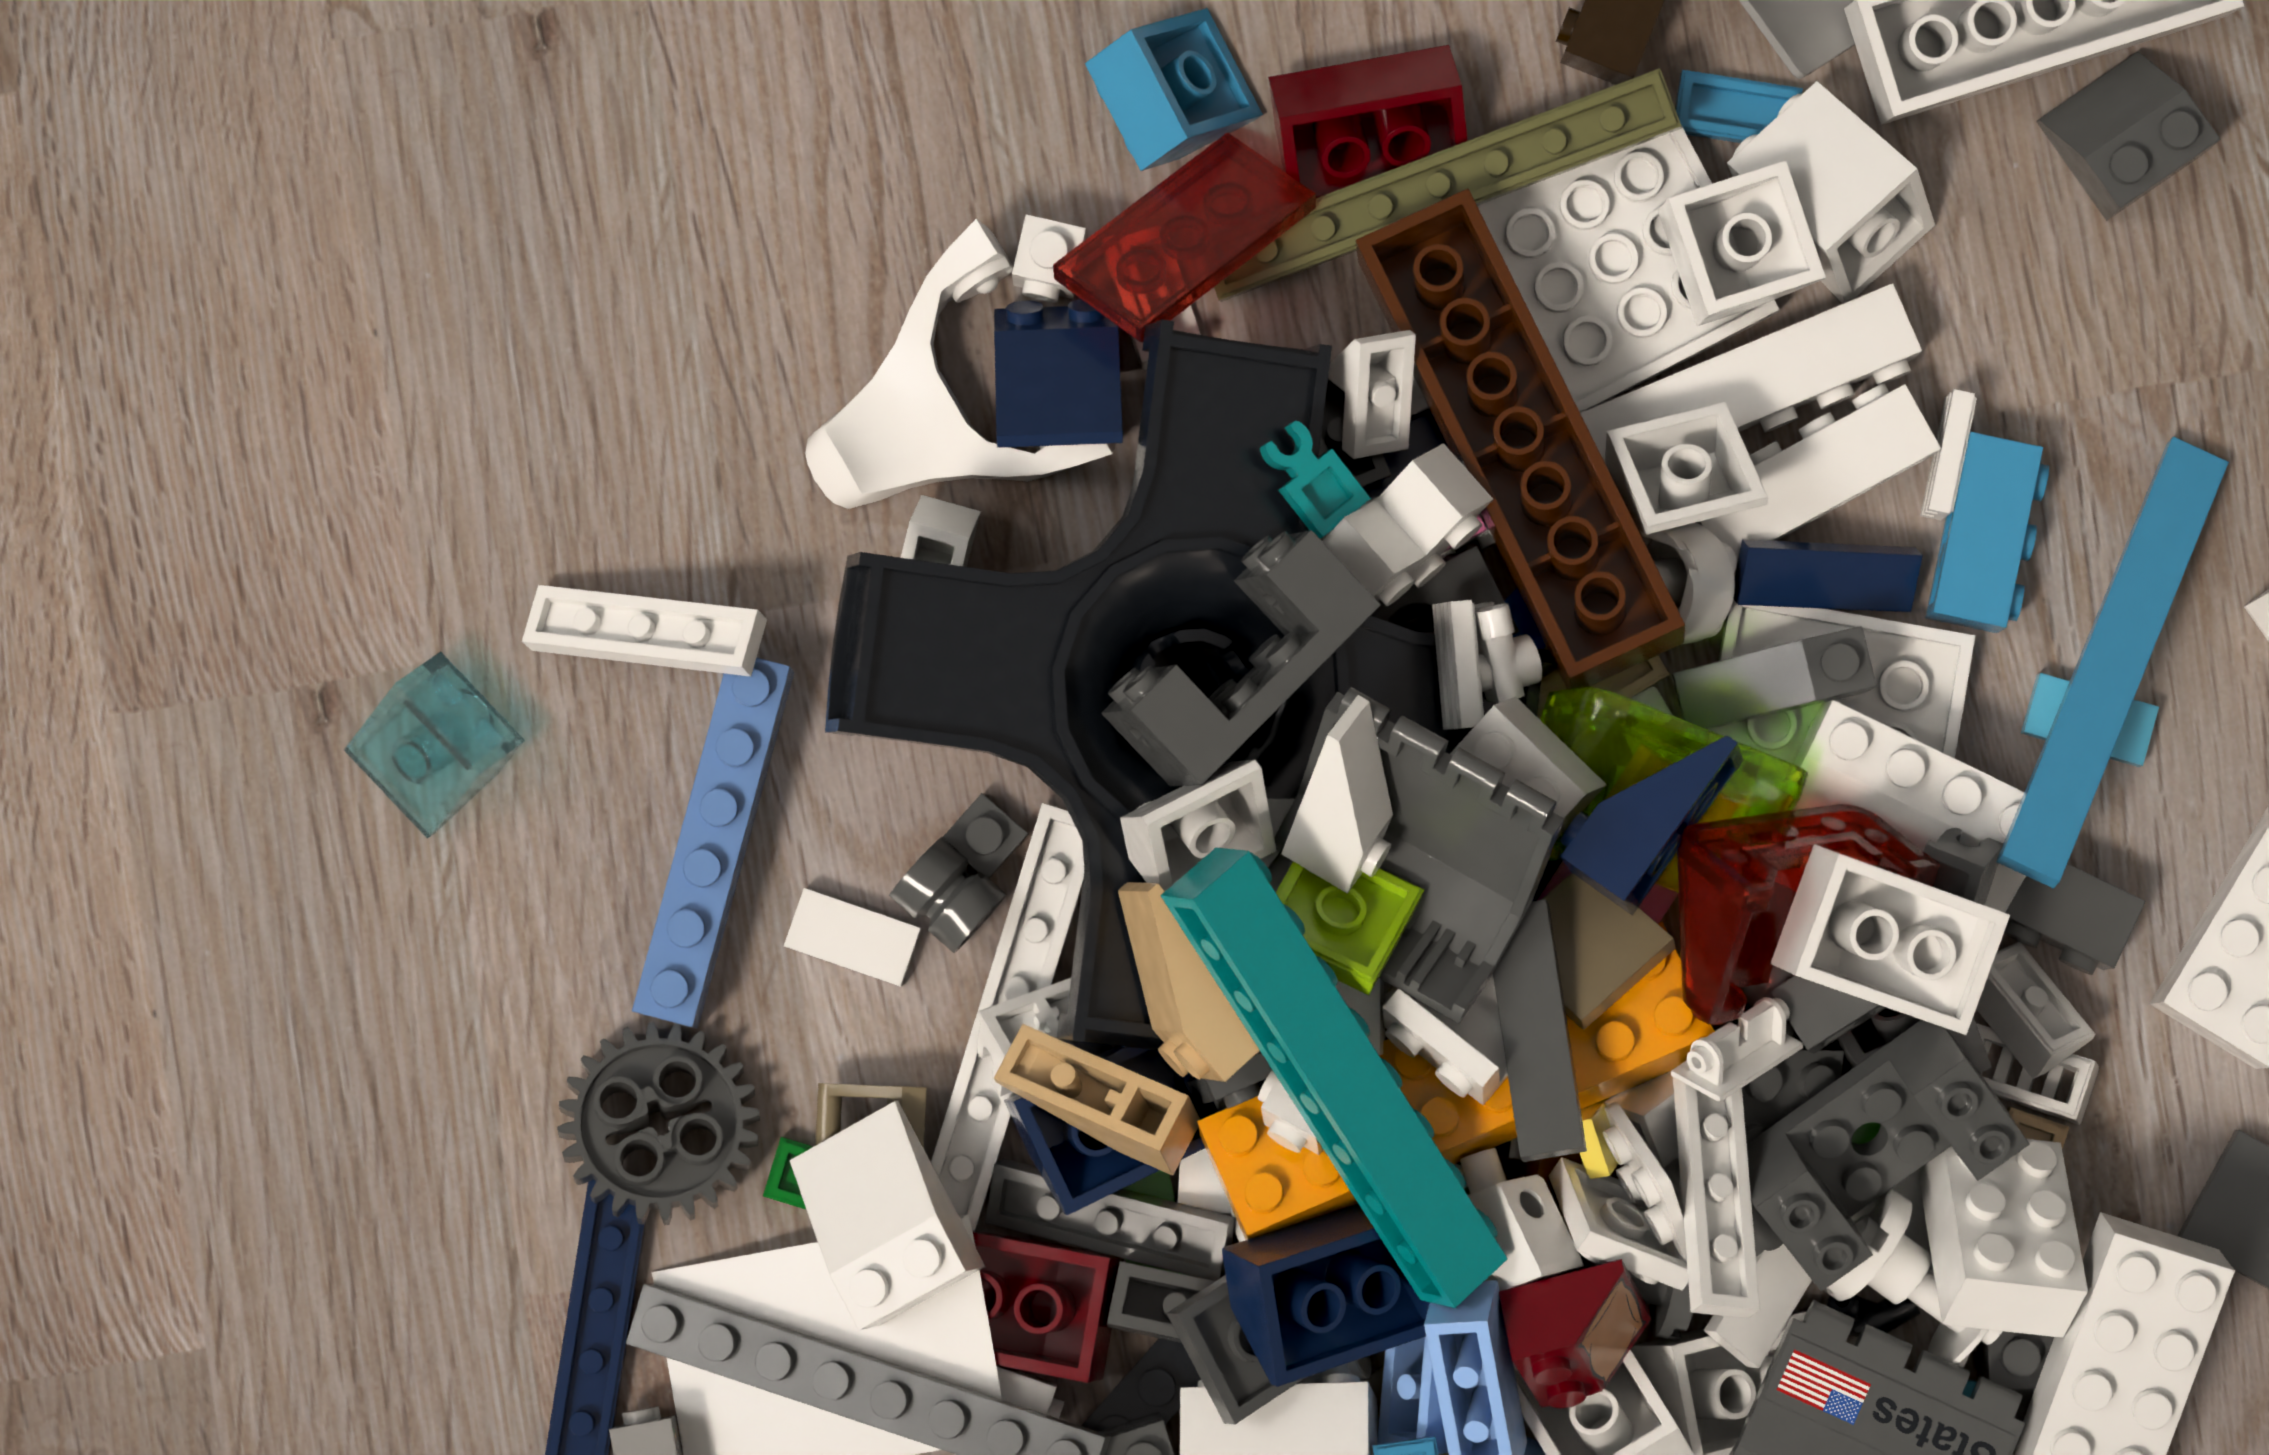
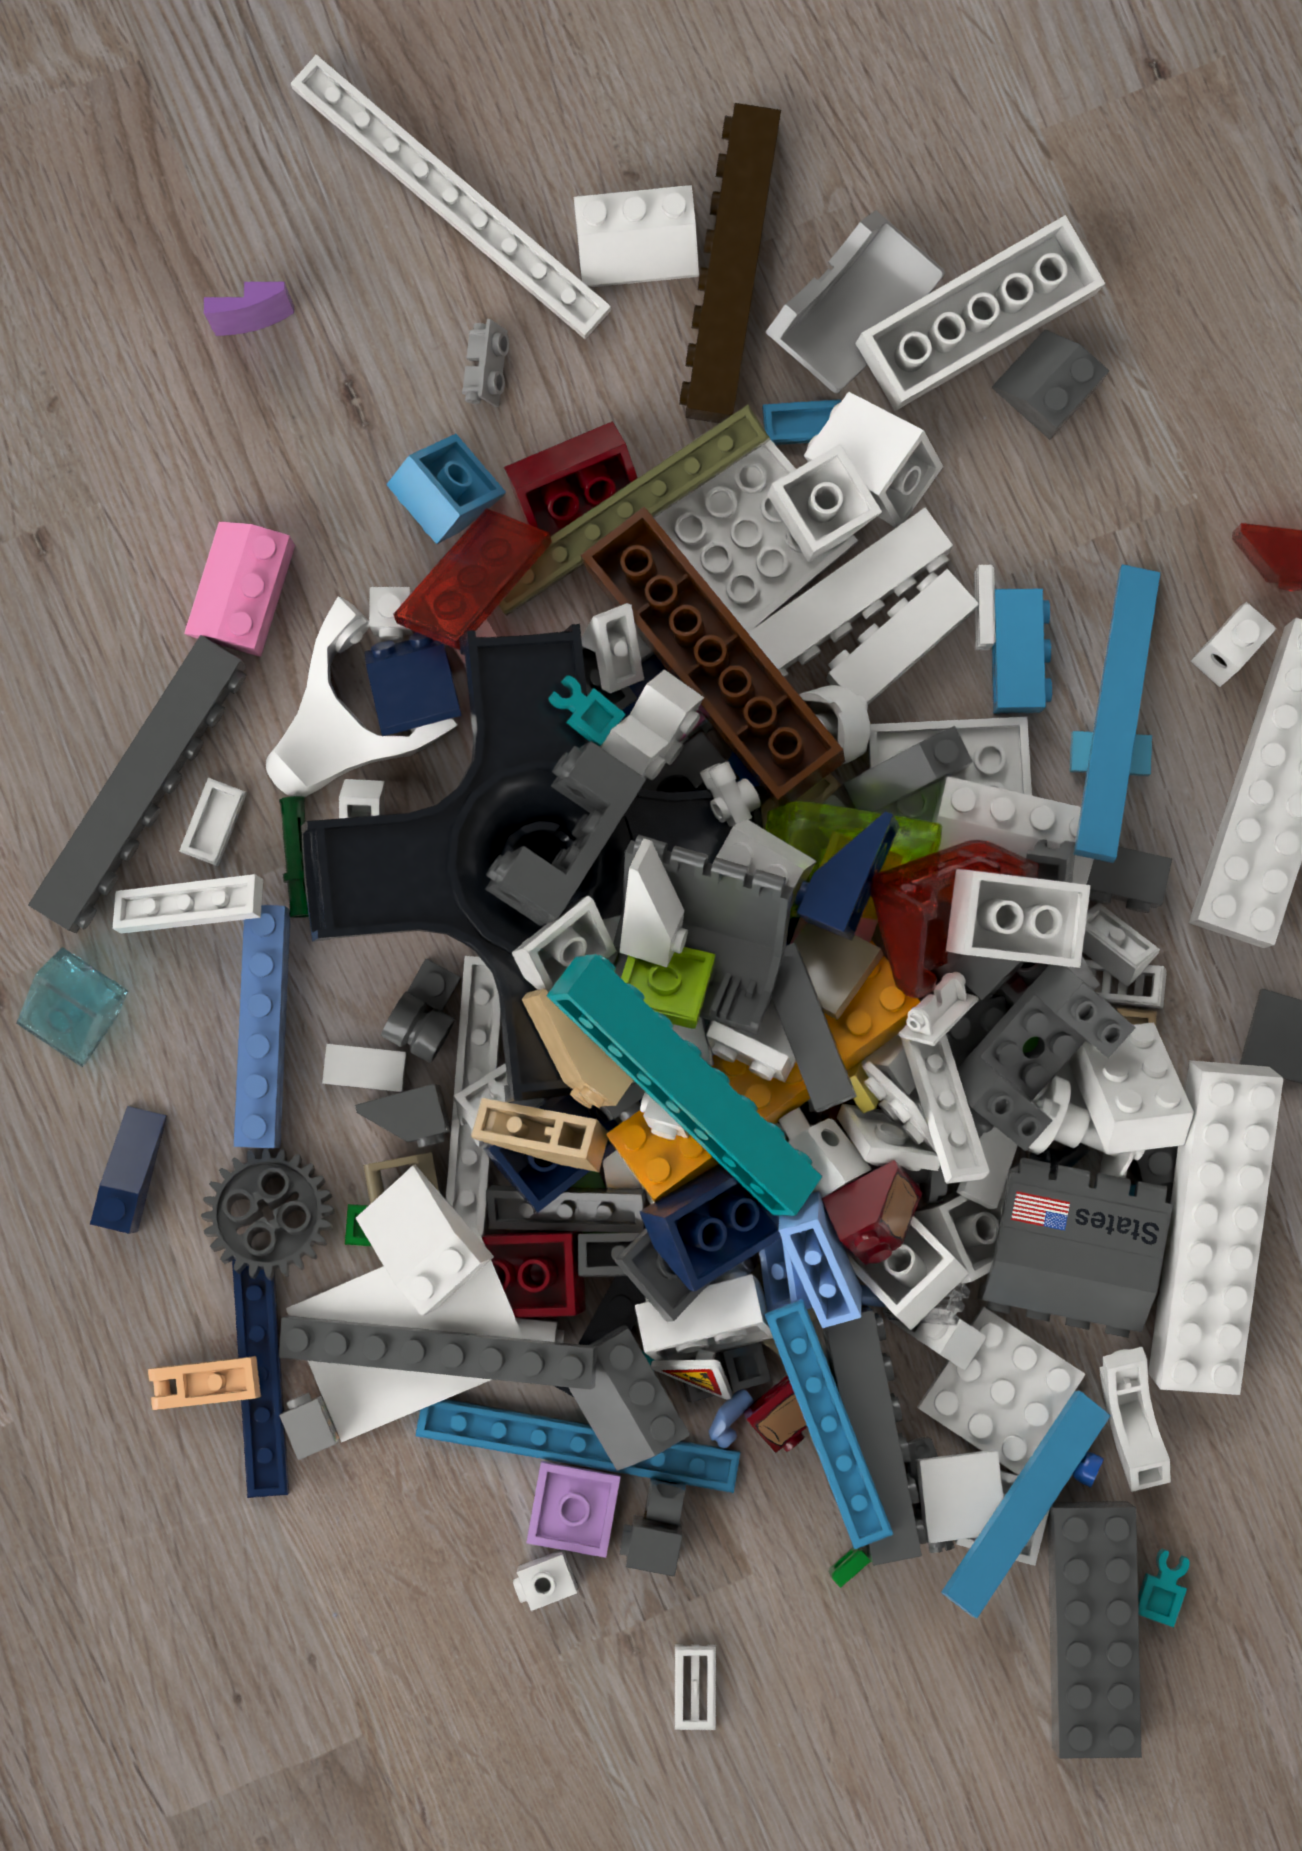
camera: 15 degrees left, 0 degrees up
(464, 1011) = (129, 1171): none -> dark blue slope
(508, 1355) = (205, 1382): none -> light nougat plate
(609, 433) = (138, 785): none -> dark grey brick
(707, 513) = (213, 822): none -> white tile
(822, 595) = (292, 819): none -> dark green pin
(829, 167) = (240, 586): none -> bright pink slope
(908, 1024) = (411, 1115): none -> dark grey slope
(1458, 664) = (705, 806): white tile -> none
(1683, 469) = (819, 651): white slope -> none
(1826, 575) = (925, 700): dark blue tile -> none

